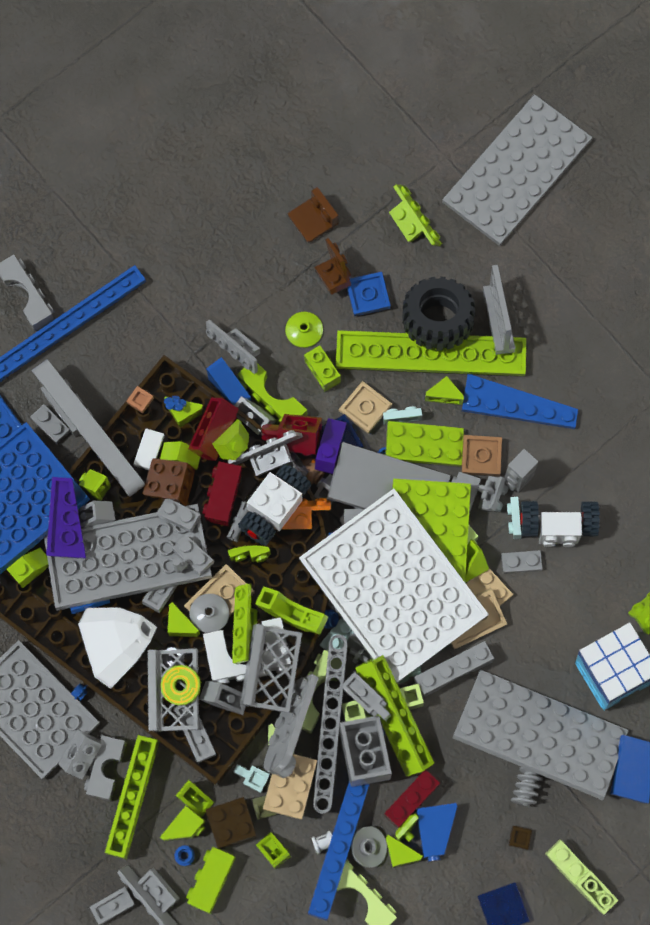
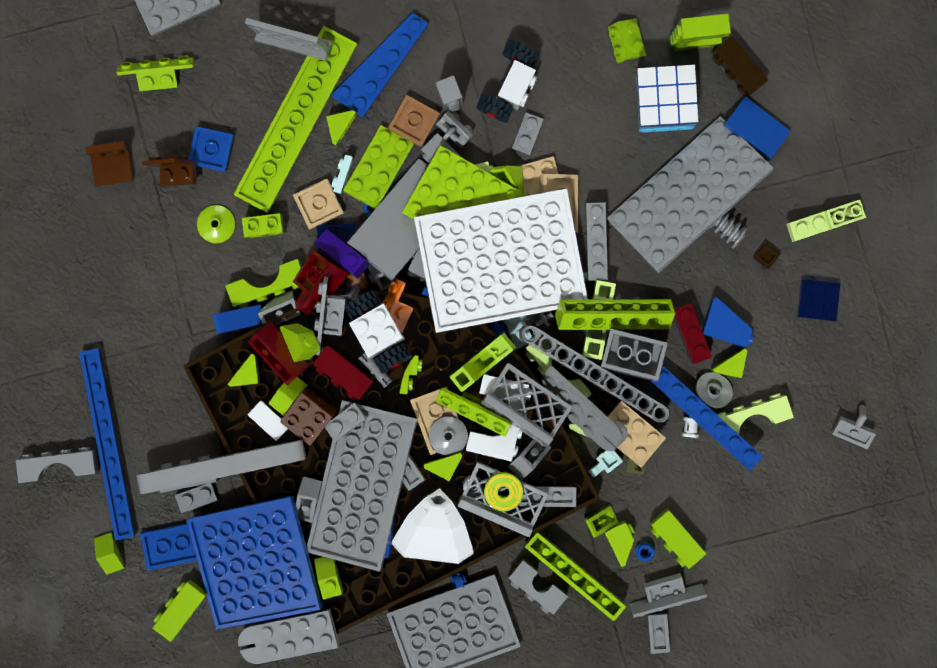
camera: 70 degrees left, 15 degrees up
(64, 525) = (305, 529): dark purple wing -> none
(80, 754) = (516, 604): light grey brick -> none
(94, 484) = (279, 485): lime slope -> none
(140, 399) = (217, 407): nougat plate -> none
(174, 403) = (239, 378): blue plant -> none
(191, 556) = (391, 428): light grey plate -> none
(231, 823) = (637, 499): dark brown brick -> none
(236, 344) = (203, 293): light grey bracket -> none
(273, 850) = (678, 473): lime slope -> none
(365, 696) = (589, 332): light grey hinge -> none
(404, 830) = (716, 353): lime piece -> none
(438, 333) = (245, 80): black tyre -> none
(514, 526) = (478, 117): light aqua plate -> none

